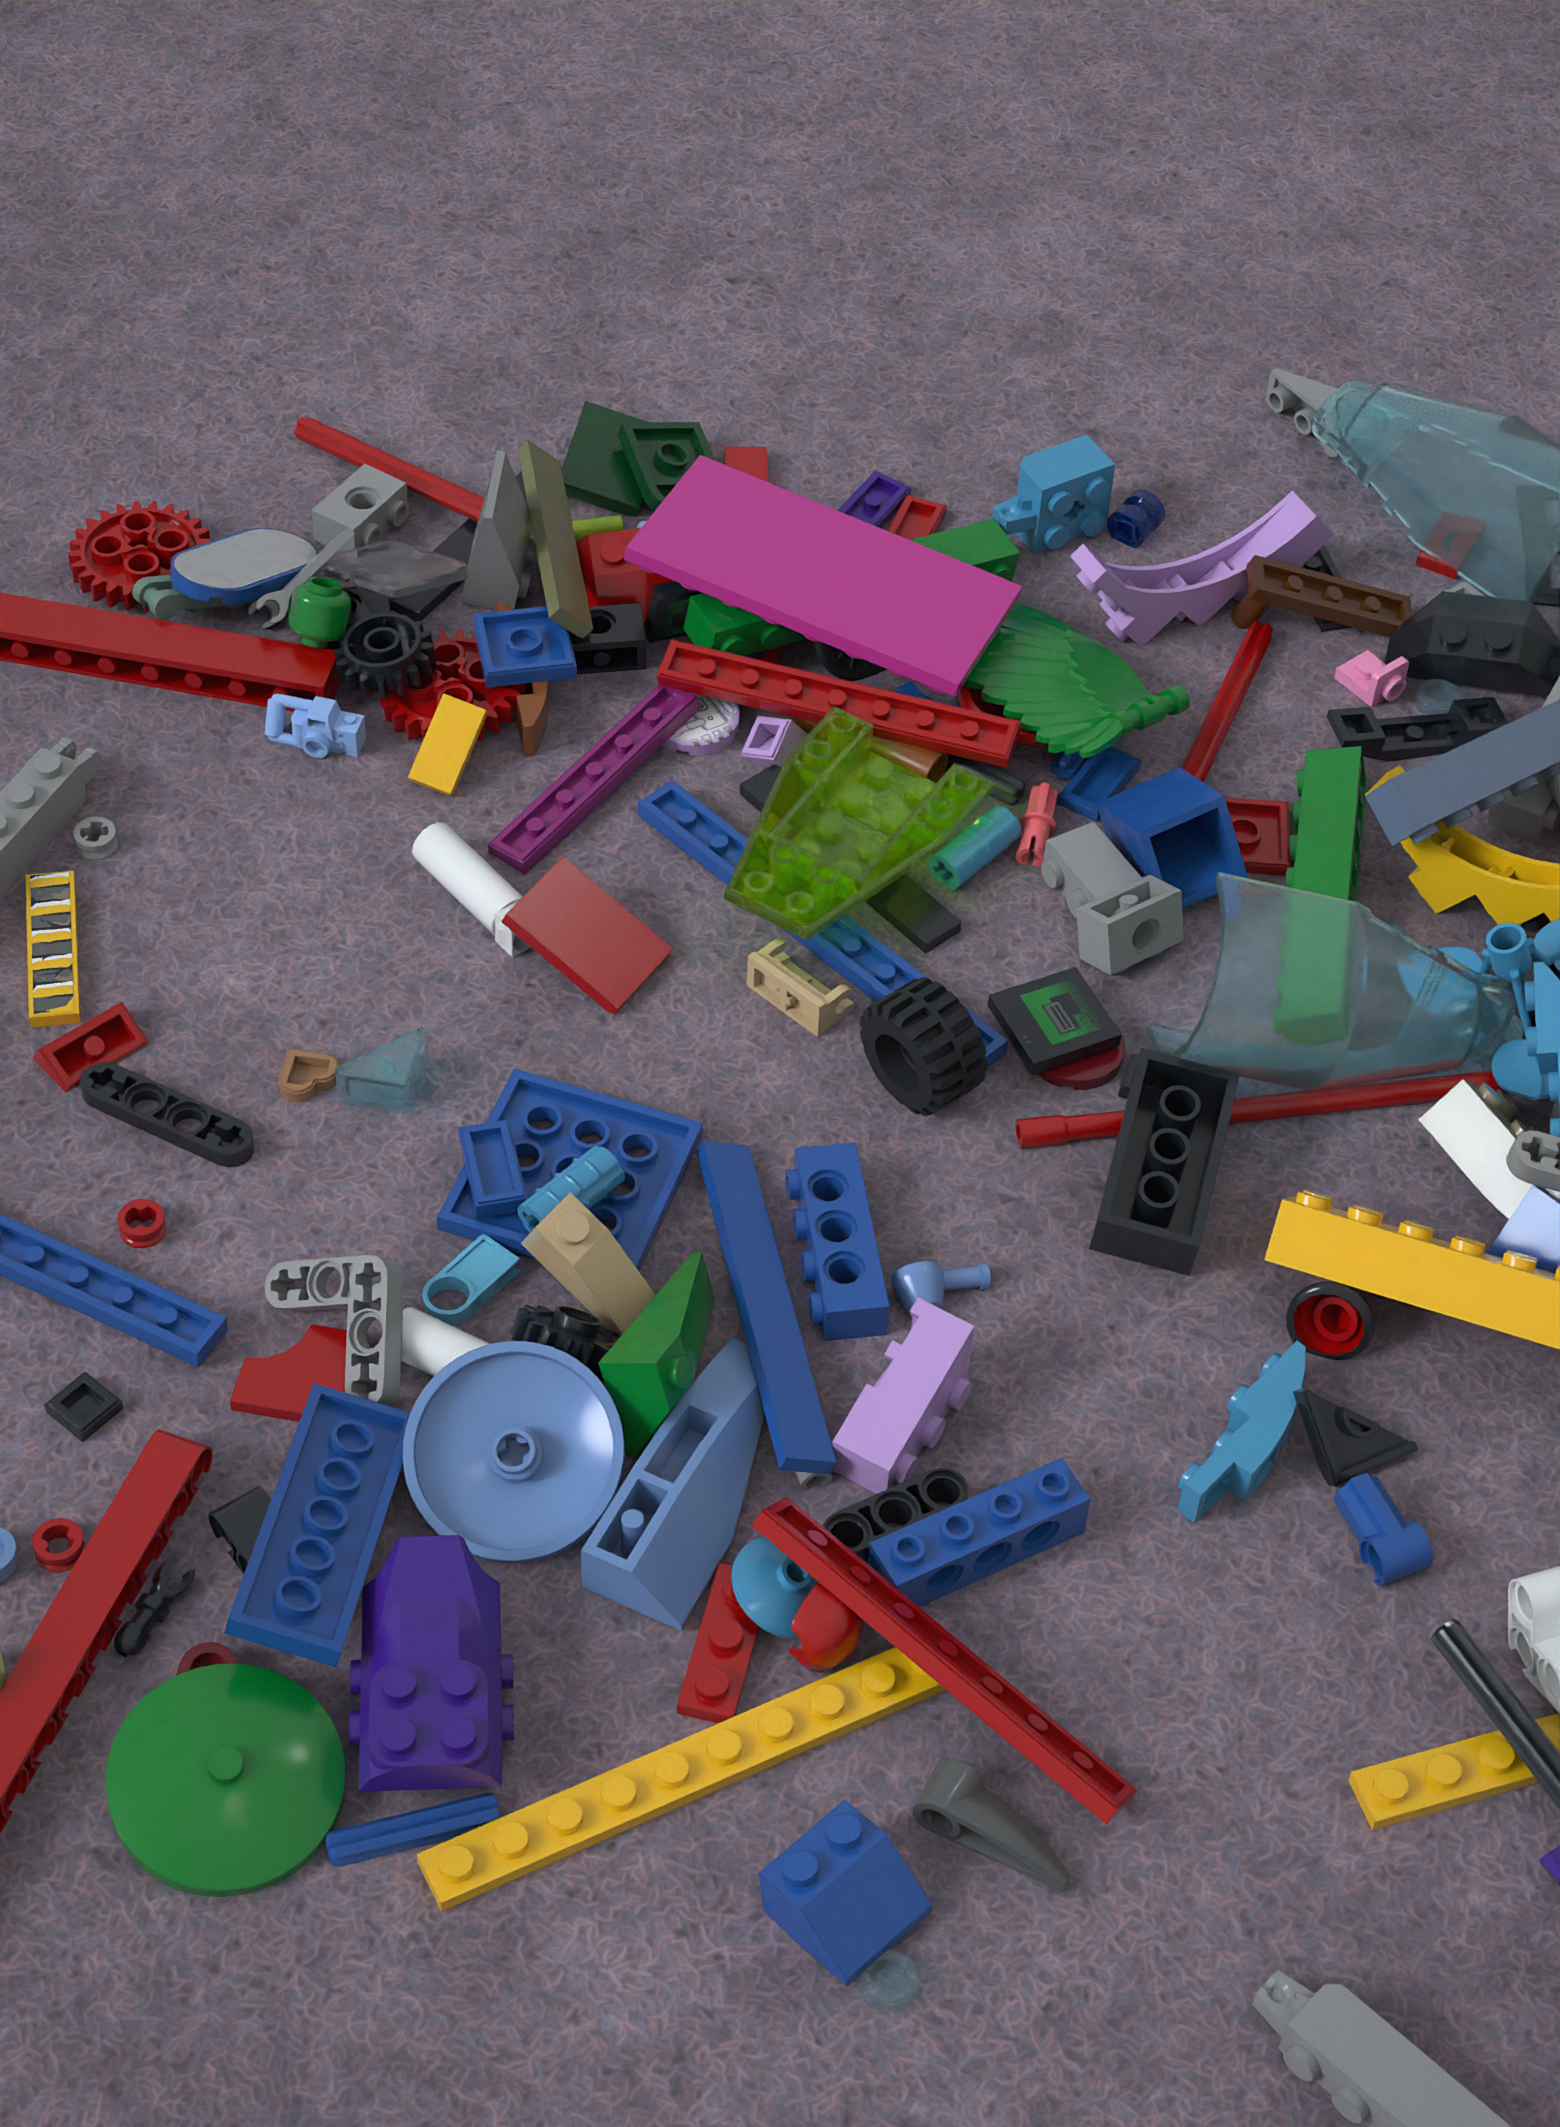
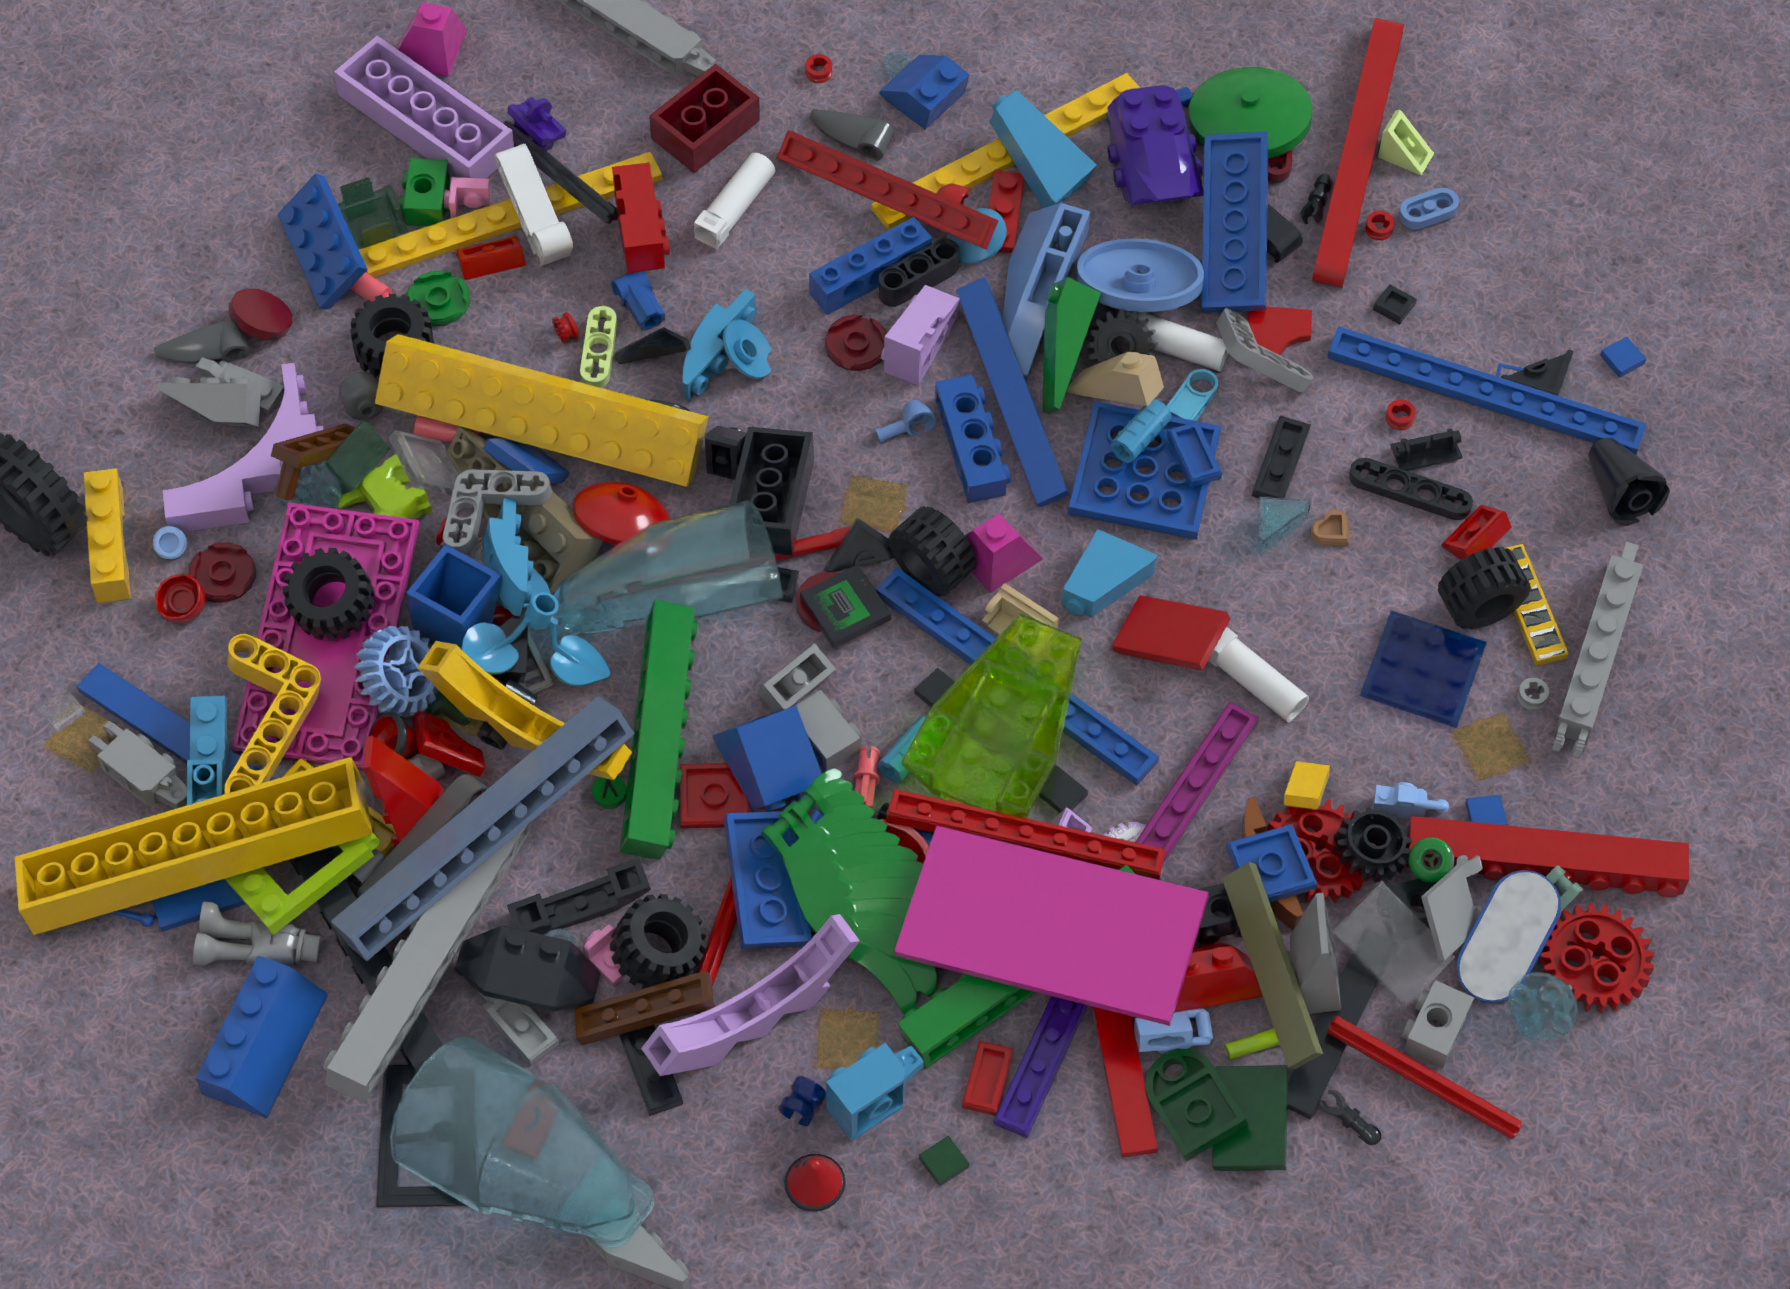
camera: 175 degrees right, 10 degrees up
(120, 920) = (1484, 588): none -> black tyre
(132, 1166) = (1427, 450): none -> black hinge
(177, 793) = (1491, 746): none -> clear yellow piece
(215, 717) = (1486, 810): none -> blue tile
(218, 486) = (1529, 1009): none -> clear light blue plate
(236, 885) = (1423, 669): none -> clear blue plate
(352, 1179) = (1281, 458): none -> black tile
(487, 450) = (1351, 1118): none -> black piece
(643, 1708) = (1040, 151): none -> dark azure slope
(662, 1030) = (1106, 574): none -> dark azure slope
(824, 1058) = (1000, 552): none -> dark pink slope
(972, 465) = (944, 1161): none -> dark green tile
(997, 1183) = (874, 502): none -> clear yellow piece
(1007, 1448) = (854, 352): none -> dark red tile
(1018, 1105) = (860, 547): none -> black tile
(1043, 2001) = (821, 60): none -> red bush
(1063, 589) = (845, 1036): none -> clear yellow piece
(1133, 462) = (814, 1182): none -> red hat
(1194, 737) = (761, 886): none -> blue plate
(1196, 1409) = (747, 348): none -> dark azure dish
(1216, 1699) = (715, 223): none -> white piece
(1231, 1240) = (724, 451): none -> black slope
(1275, 1855) = (704, 118): none -> dark red brick
(1315, 653) = (667, 920): none -> black tyre
(1381, 855) = (608, 792): none -> green tile
(1390, 1627) = (639, 218): none -> red wedge
(1424, 1181) = (616, 510): none -> red dish
(1456, 1446) = (593, 337): none -> yellowish green beam
(1504, 1491) = (566, 327): none -> red bush

